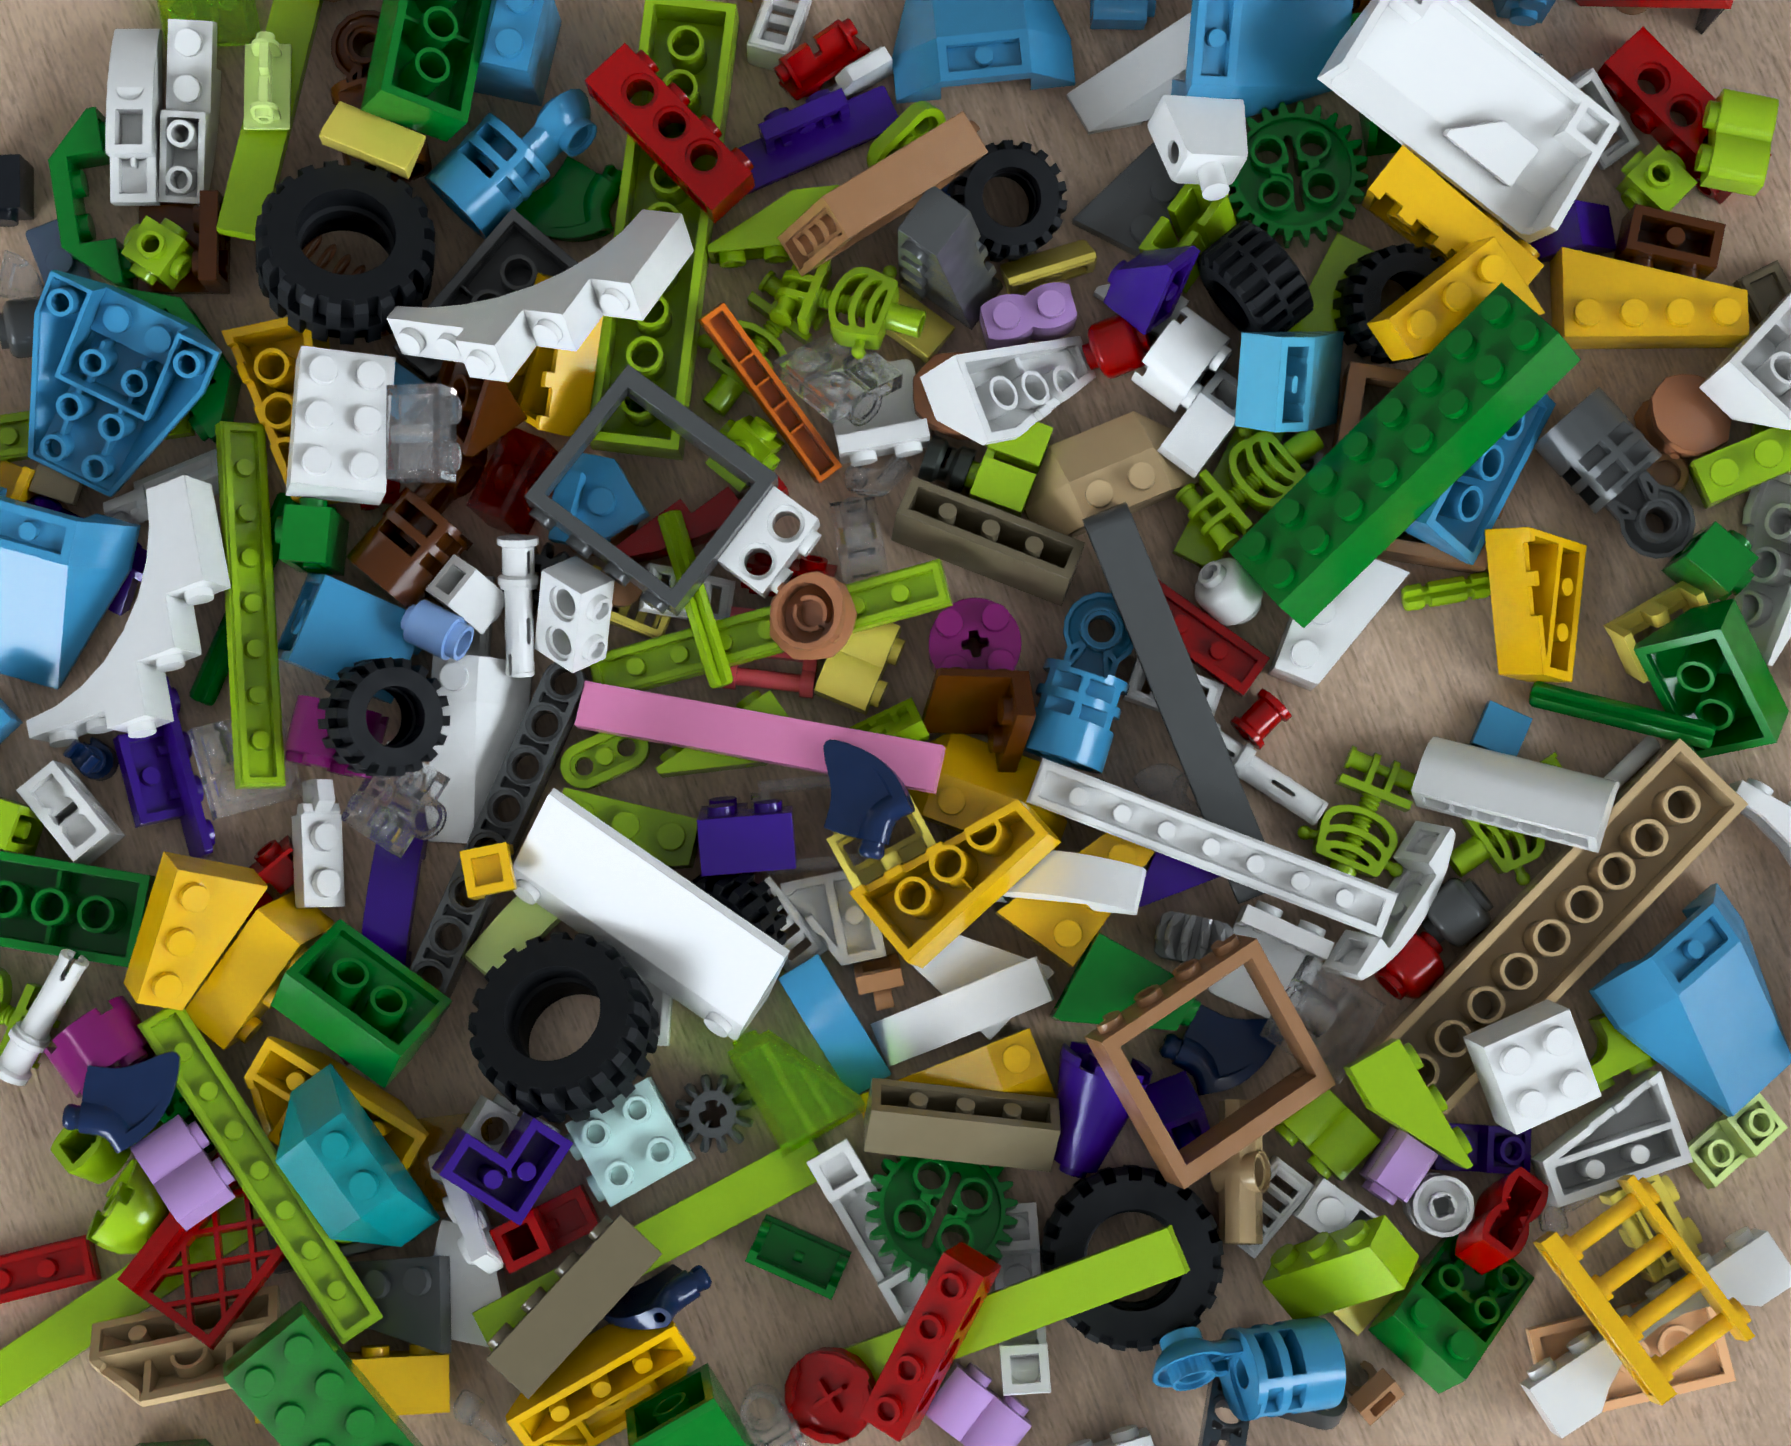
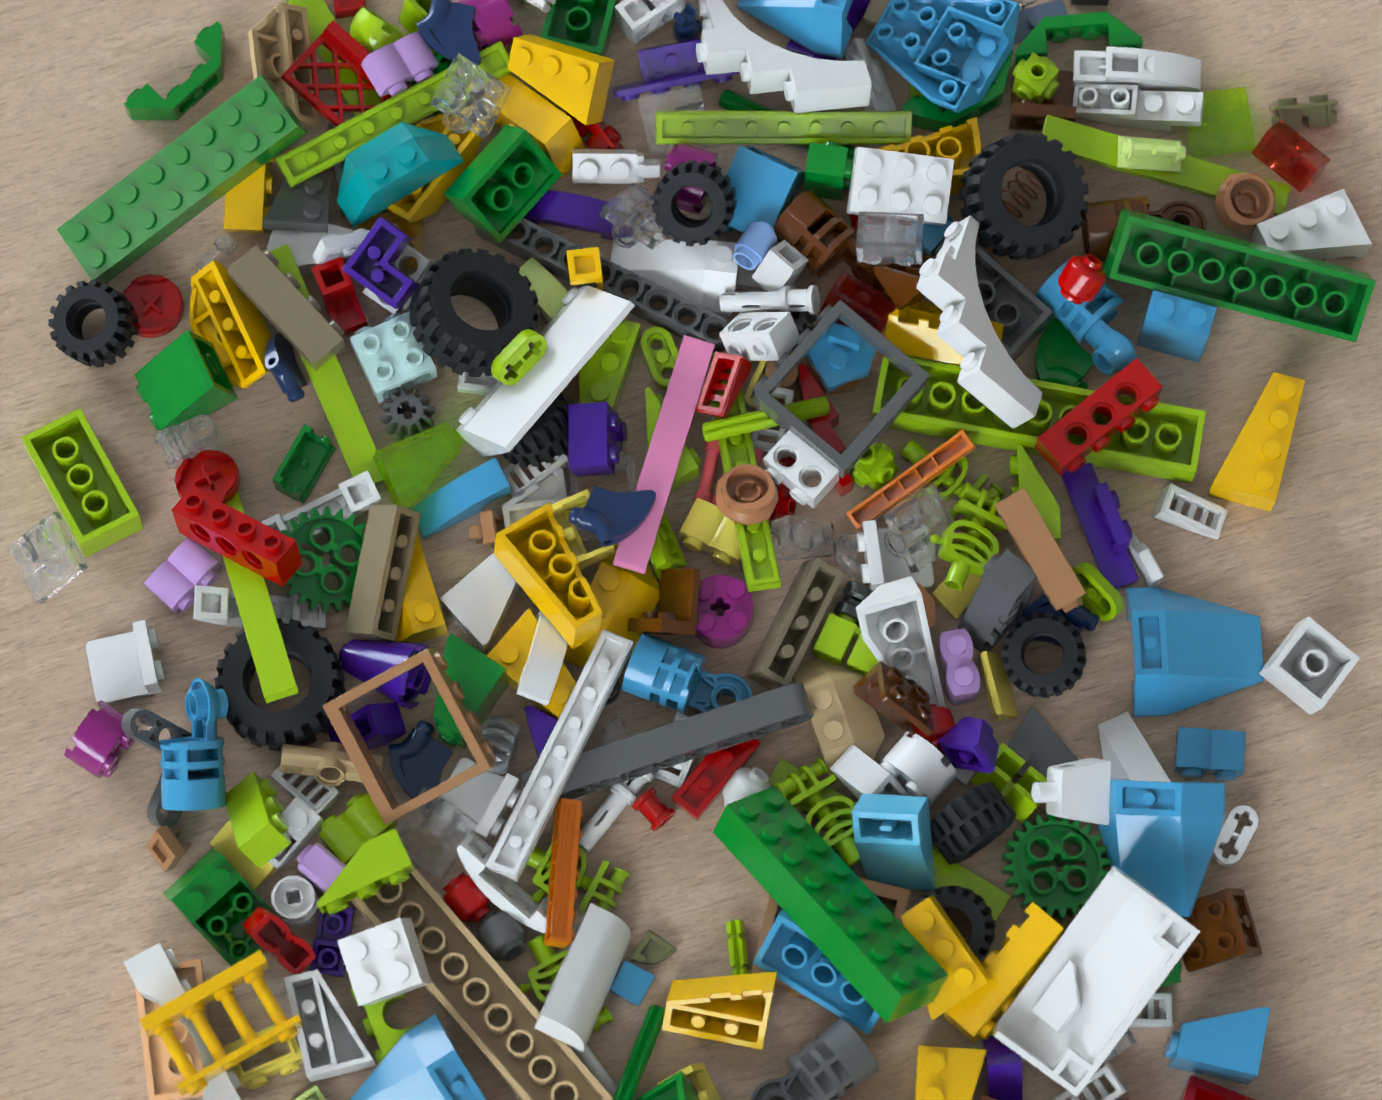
camera: 90 degrees right, 10 degrees down
(233, 1060) = (470, 98): none -> clear plate
(372, 139) = (1102, 216): light yellow slope -> none
(472, 159) = (1081, 279): none -> red head
(629, 673) = (720, 364): none -> red slope
(635, 953) = (519, 357): none -> lime beam
(804, 73) = (1148, 525): red hinge -> none
(962, 1011) = (462, 583): white slope -> none
(1088, 389) = (896, 697): none -> reddish brown bracket
(1312, 651) = (717, 866): white wedge -> none
(1373, 831) = (563, 873): none -> orange piece
(1451, 707) = (652, 949): none -> olive tile

